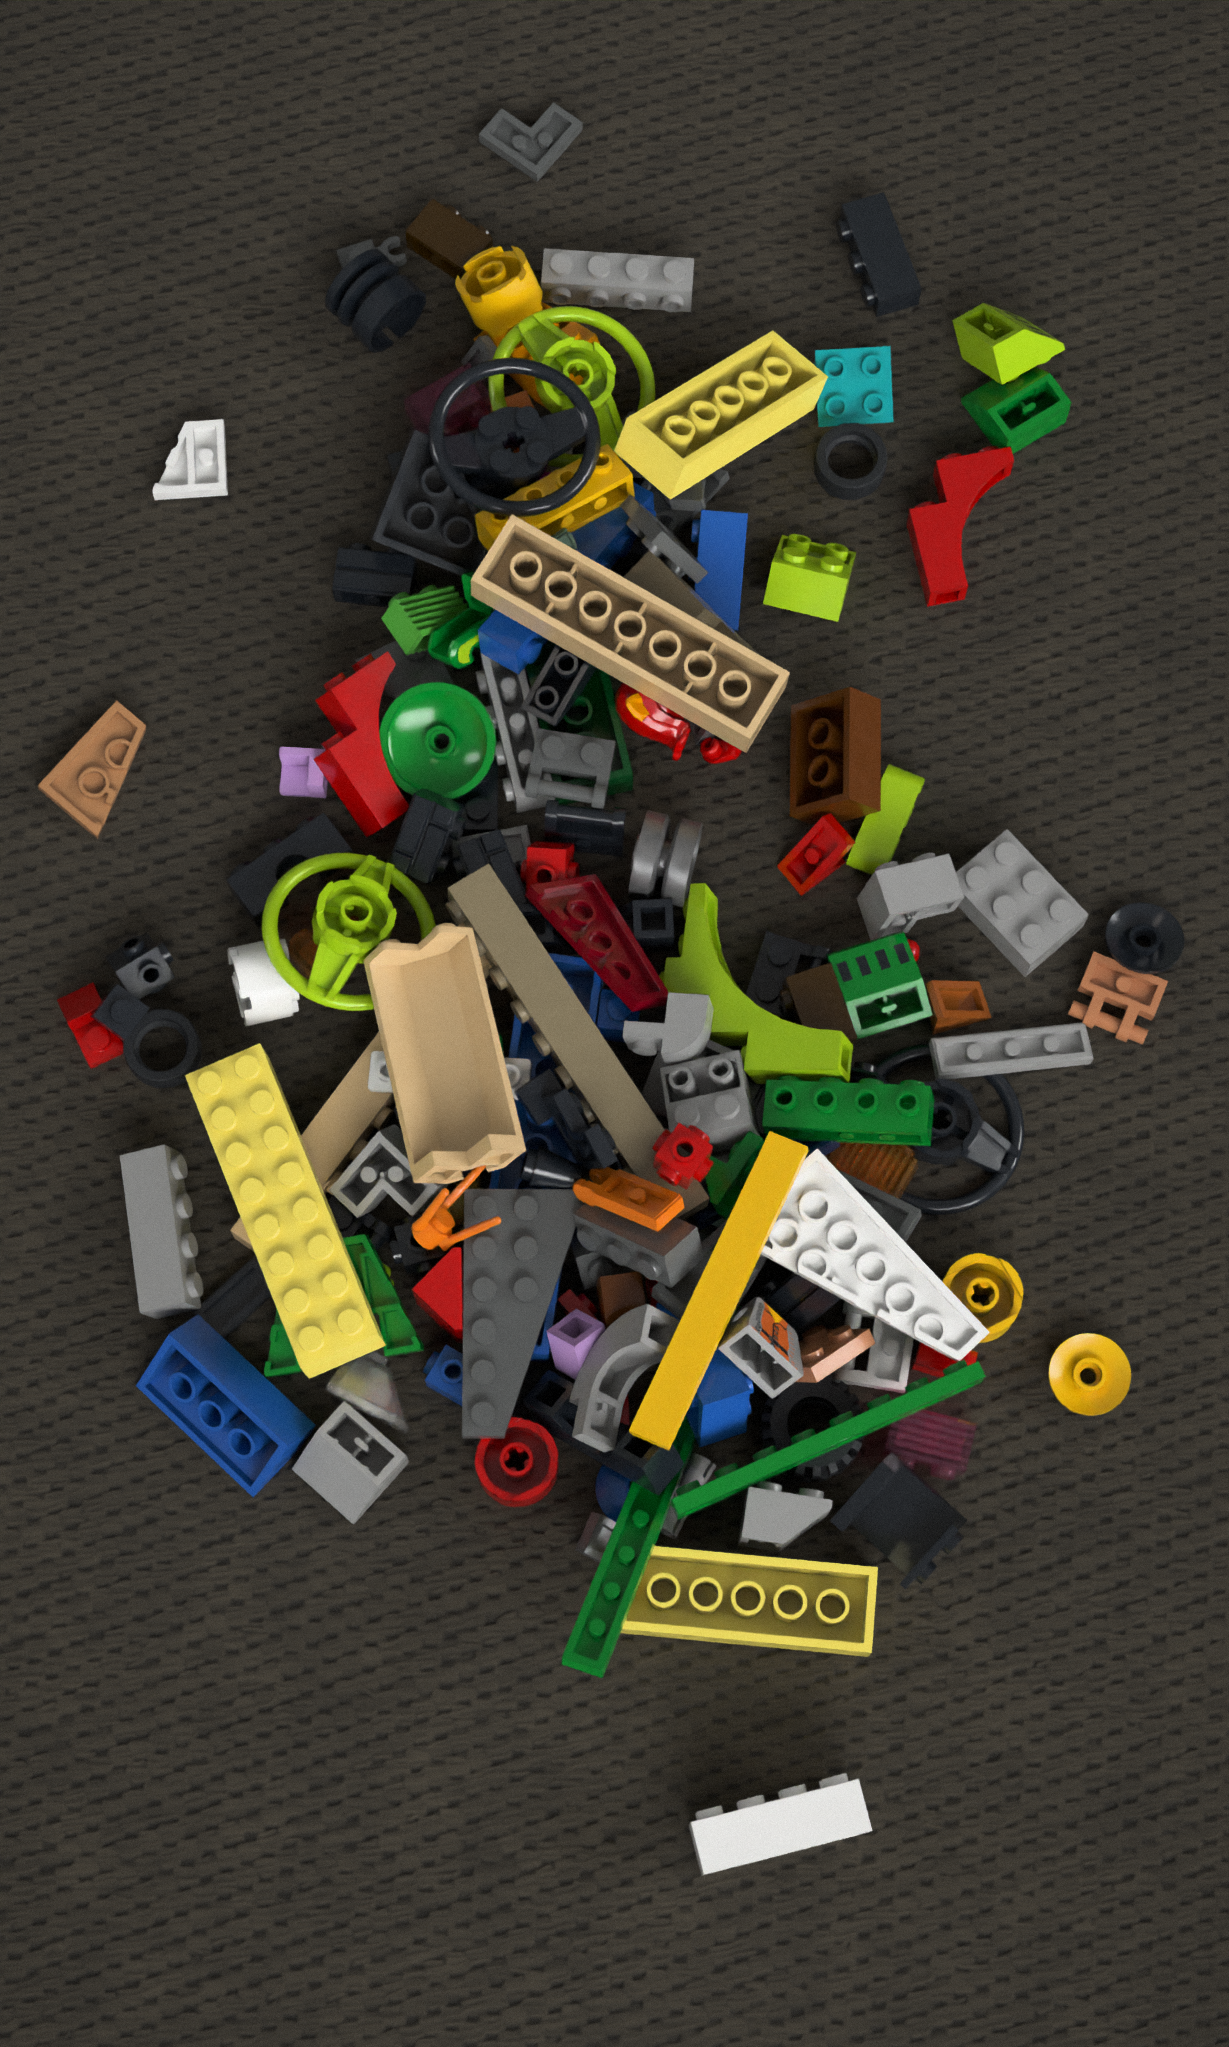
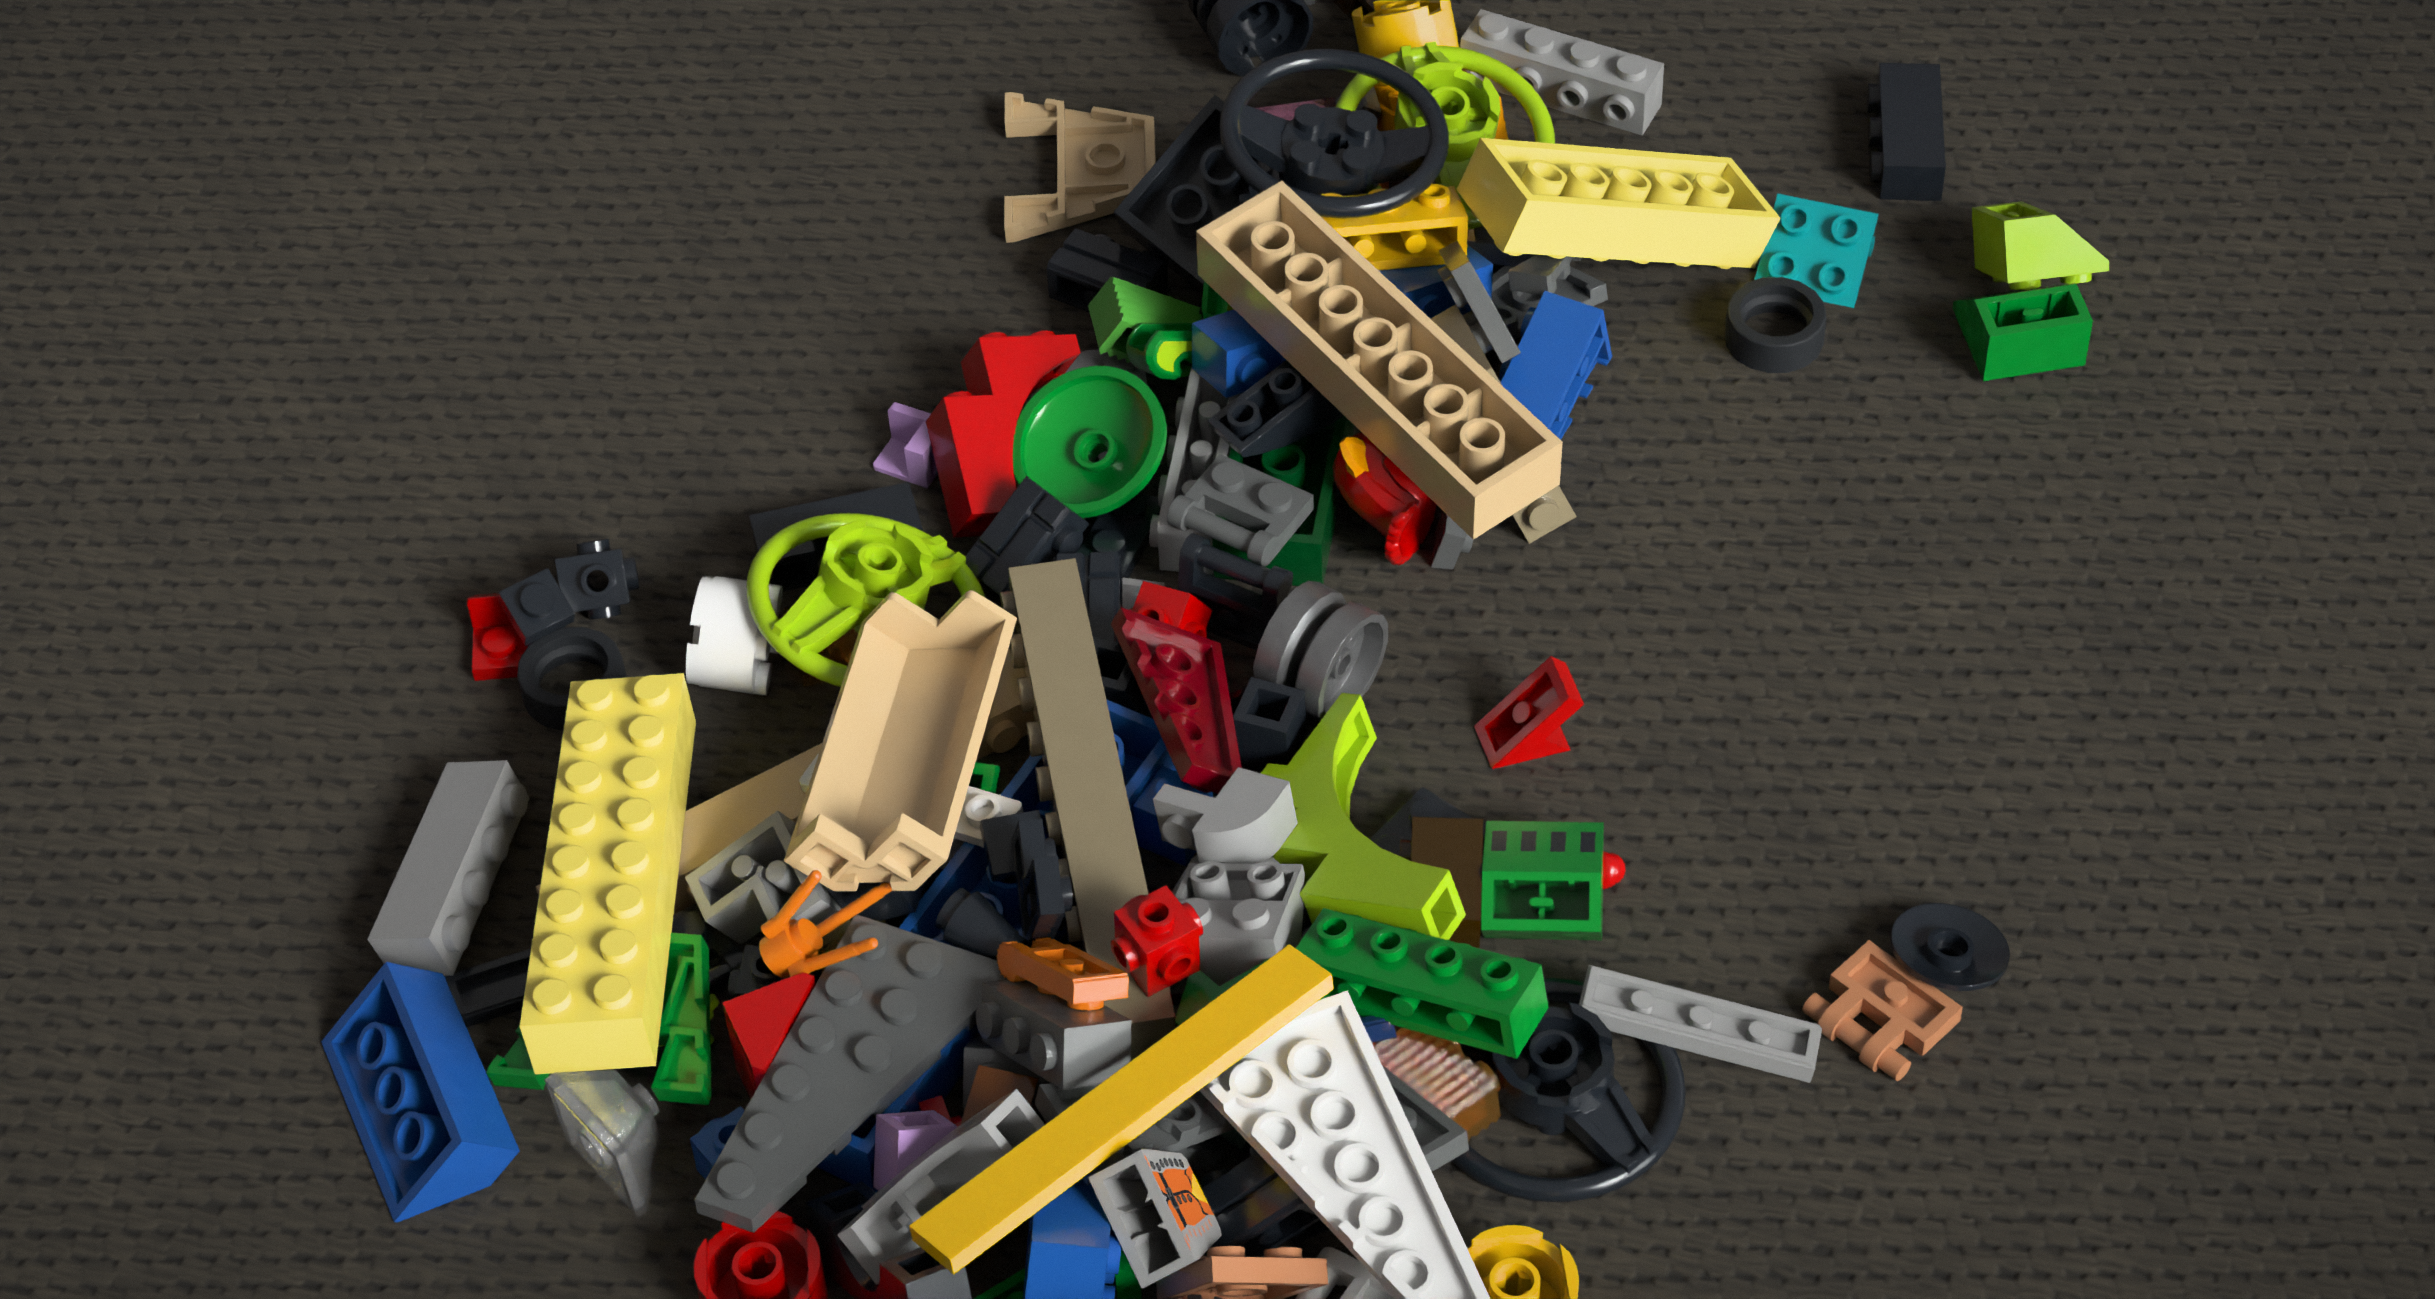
camera: 25 degrees right, 25 degrees down
(95, 768) = (663, 373): medium nougat wing -> none
(196, 464) = (954, 119): white wing -> none
(322, 471) = (1097, 163): none -> tan wing
(349, 1462) = (540, 1209): light grey slope -> none
(718, 751) = (1471, 580): red arm -> none
(809, 577) = (1662, 423): lime slope -> none
(835, 756) = (1606, 604): reddish brown brick -> none
(883, 829) = (1641, 710): lime beam -> none
(909, 892) = (1634, 778): light grey brick -> none
(938, 528) = (1867, 420): red arch -> none
(956, 1004) = (1643, 940): dark orange slope -> none
(1018, 903) = (1782, 851): light grey brick -> none

